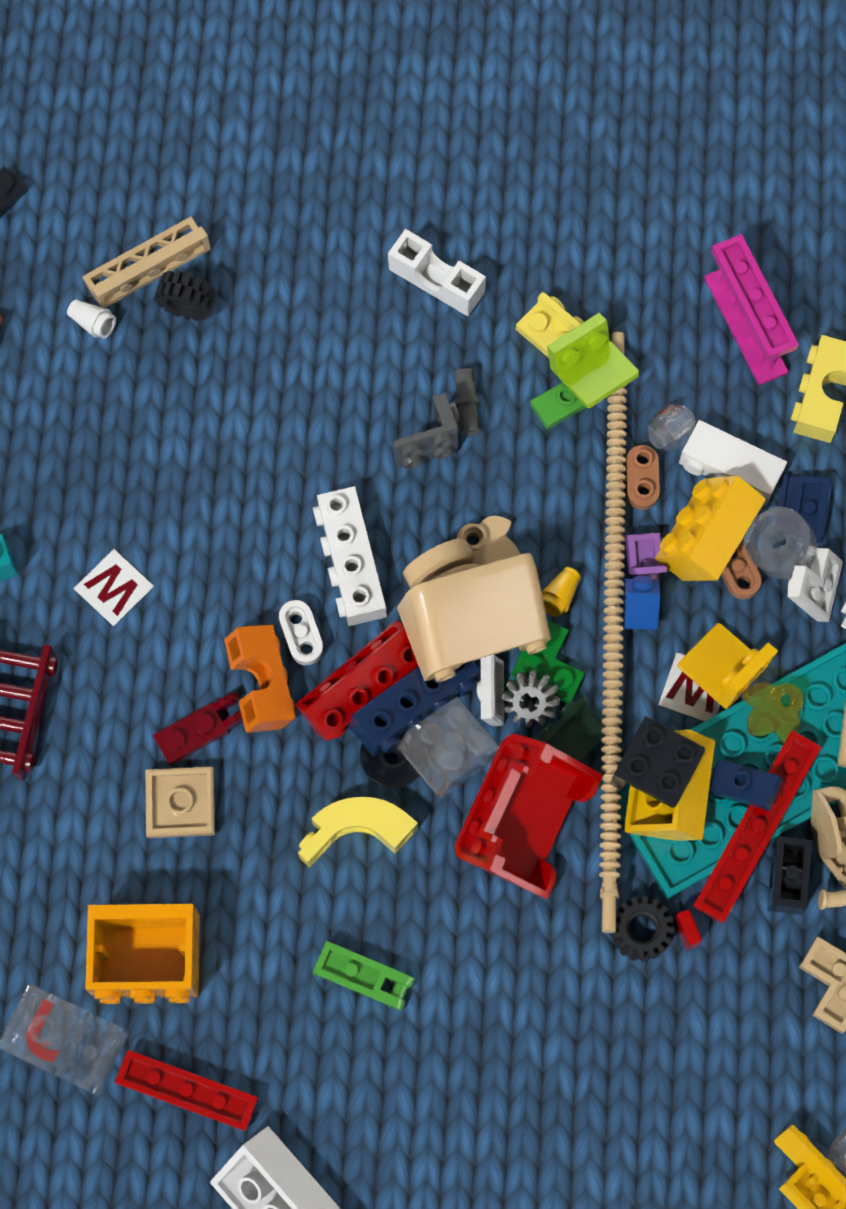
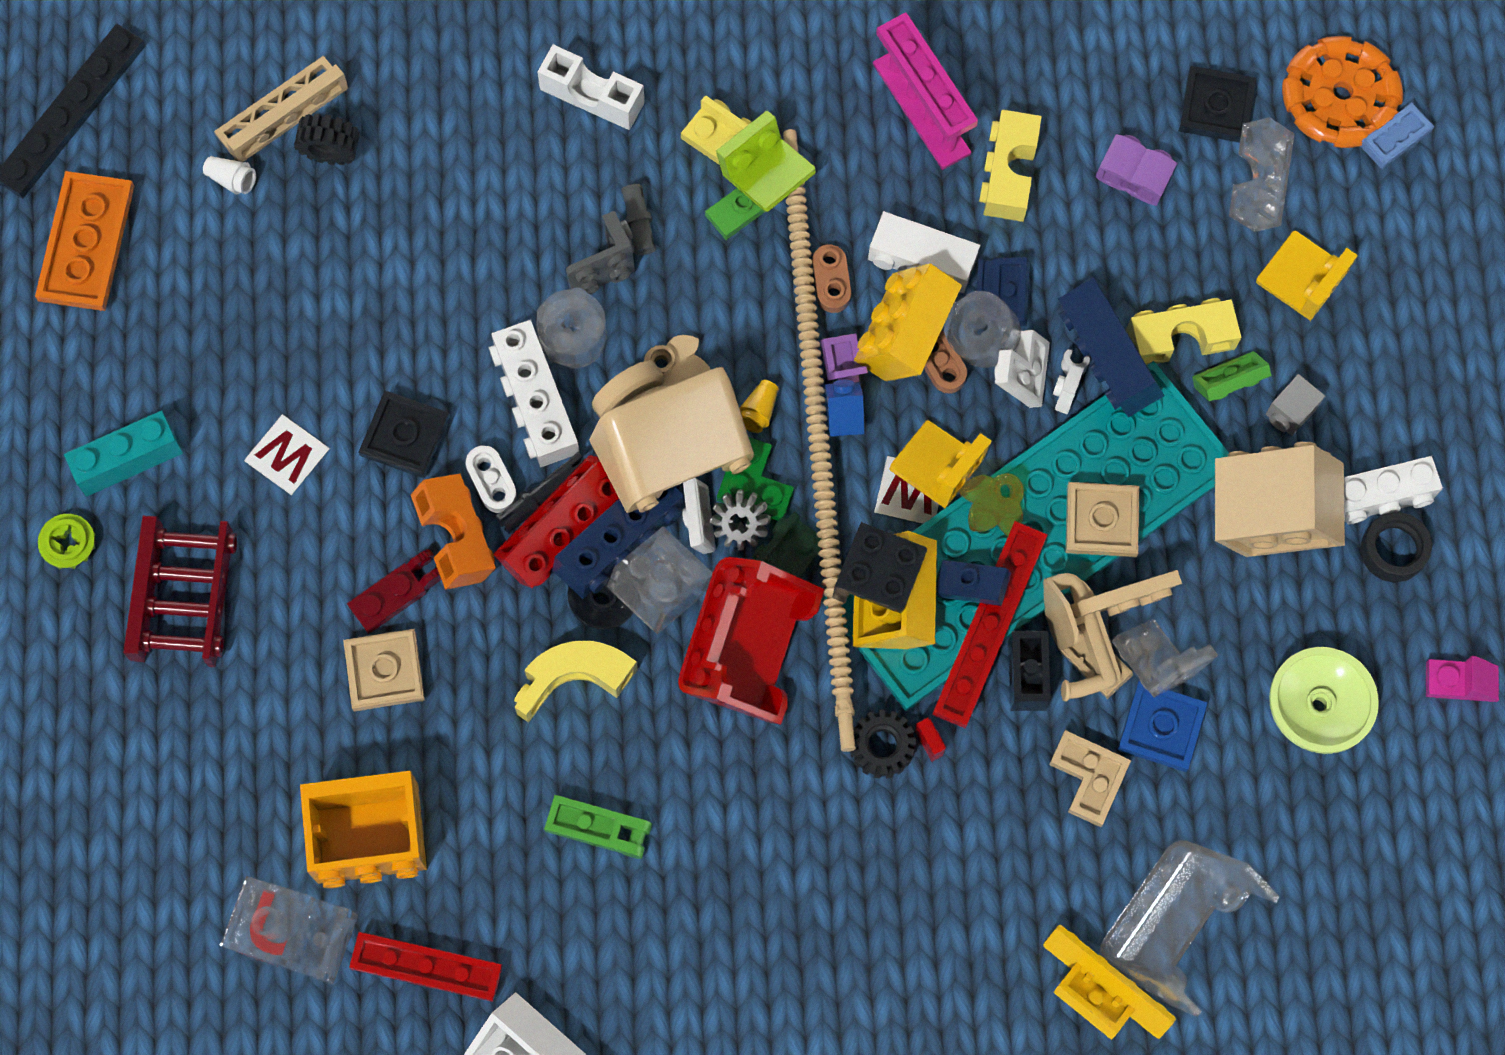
camera: 10 degrees left, 0 degrees up
(225, 581) = (404, 434): none -> black plate
(338, 656) = (531, 500): none -> black pin
(394, 480) = (576, 310): none -> clear brick
(671, 427) = (855, 222): clear head -> none

